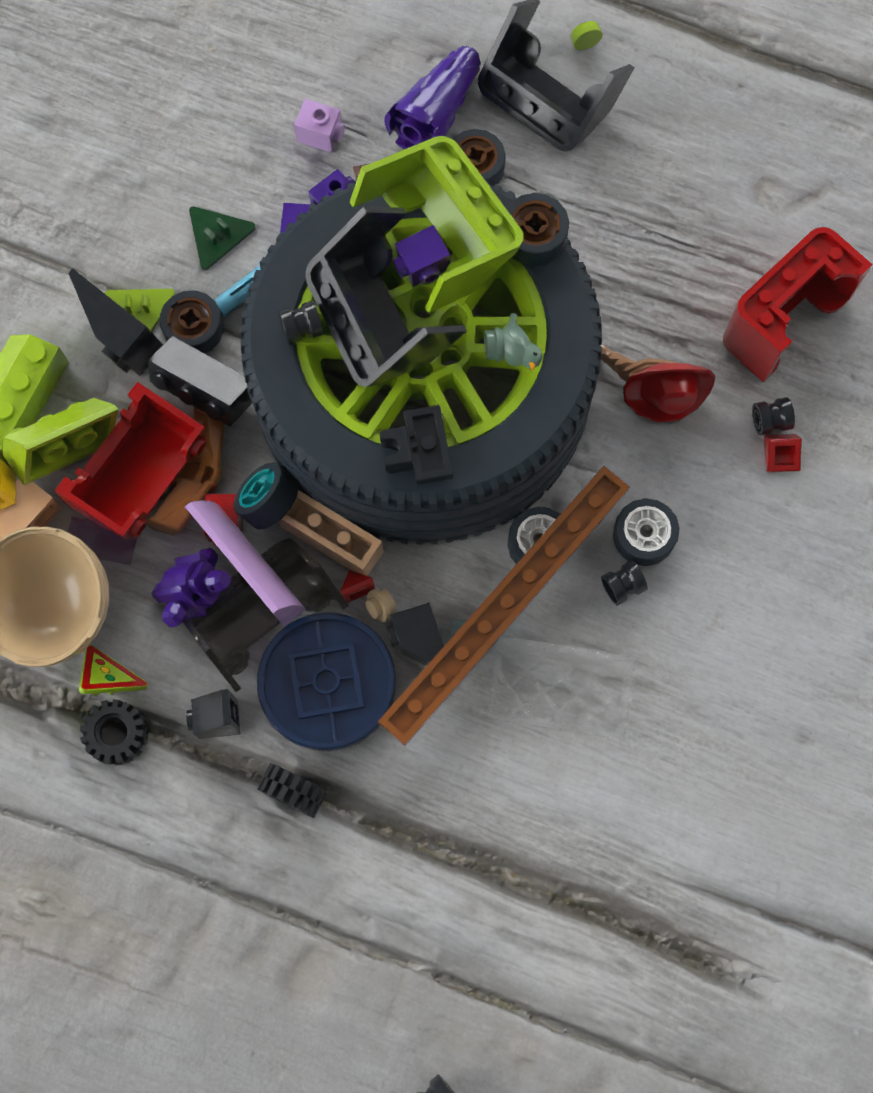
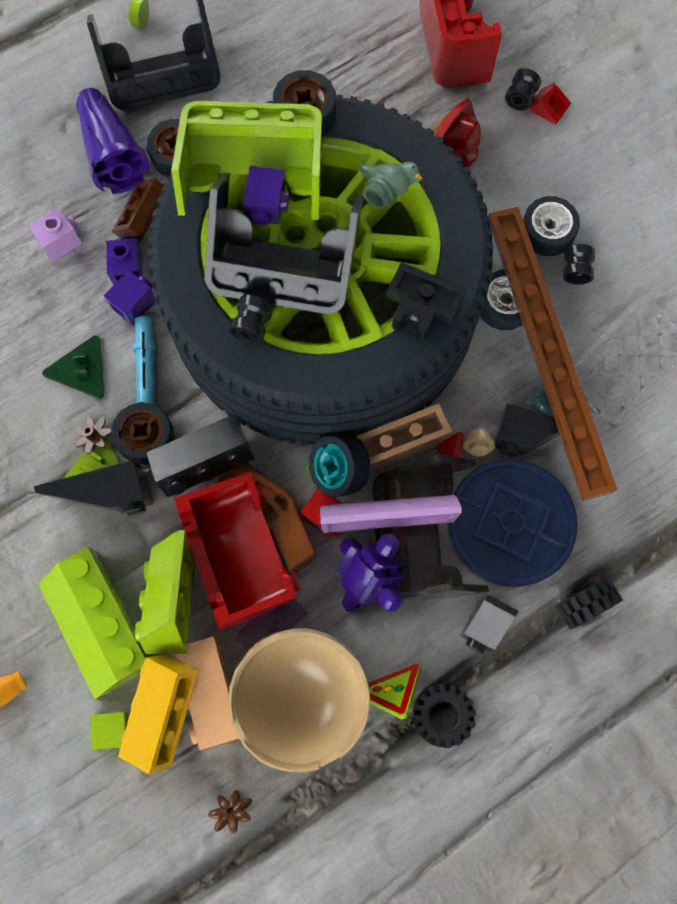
camera: 55 degrees left, 0 degrees up
(163, 284) = (92, 434): none -> plant

